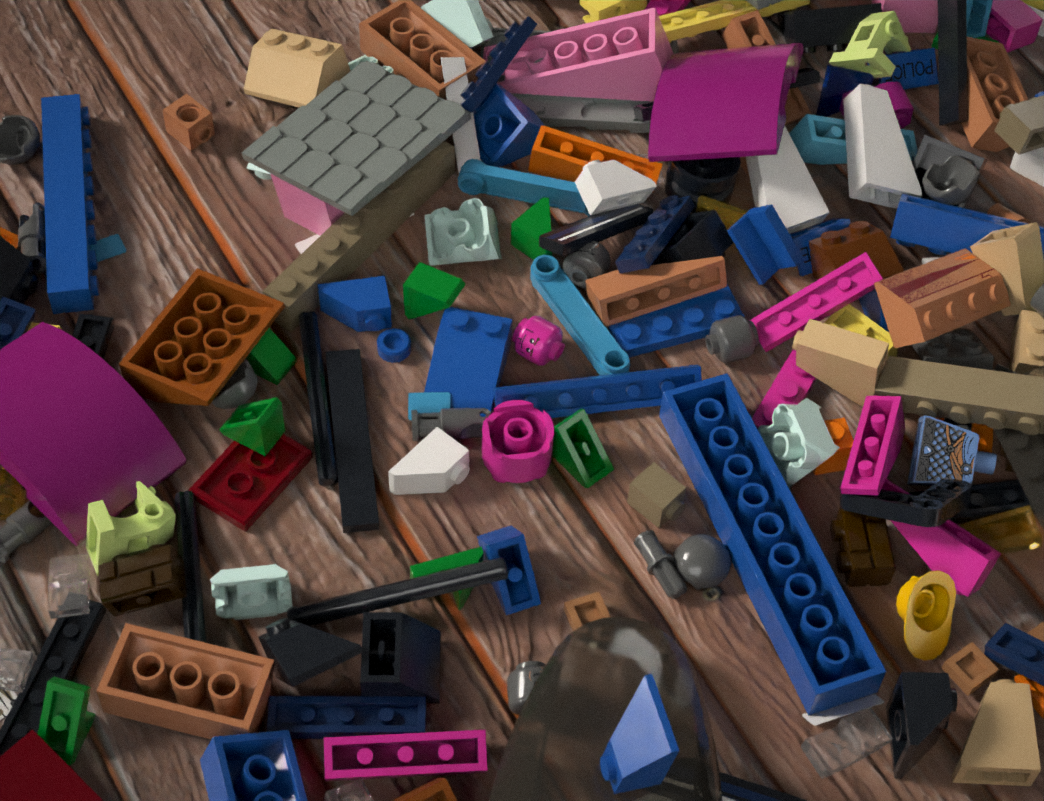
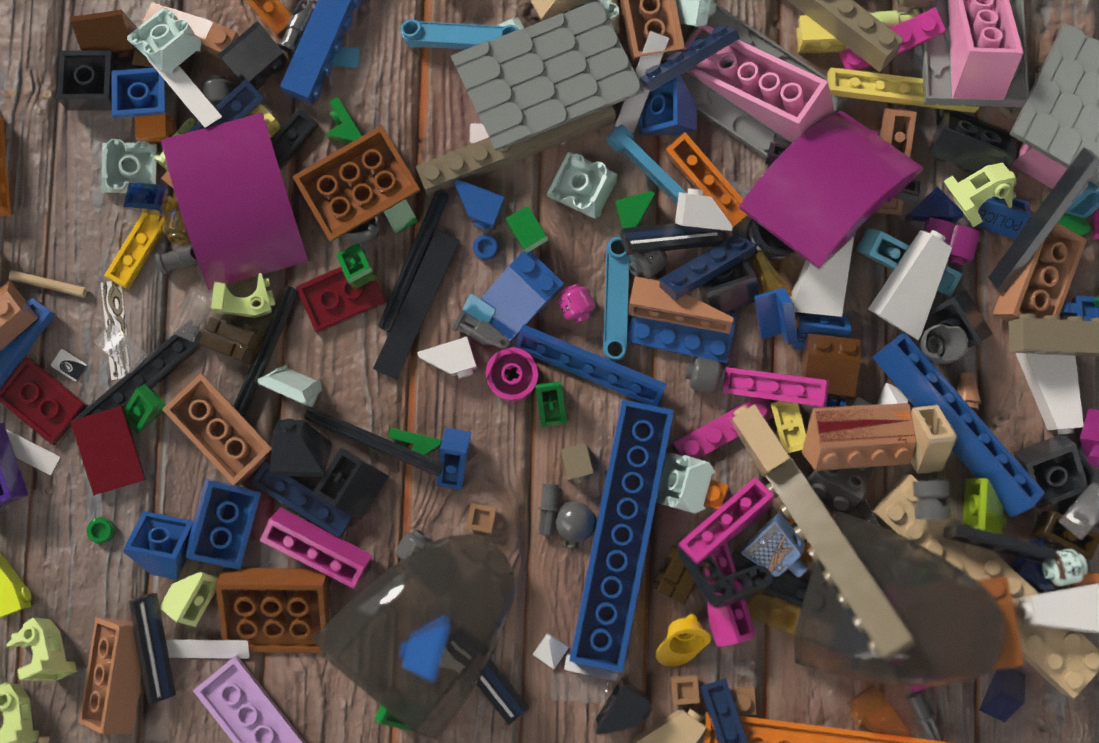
camera: 35 degrees right, 30 degrees up
(144, 299) = (345, 132): none -> green slope
(179, 185) = (450, 35): none -> dark azure piece
(780, 720) = (550, 650): none -> white slope

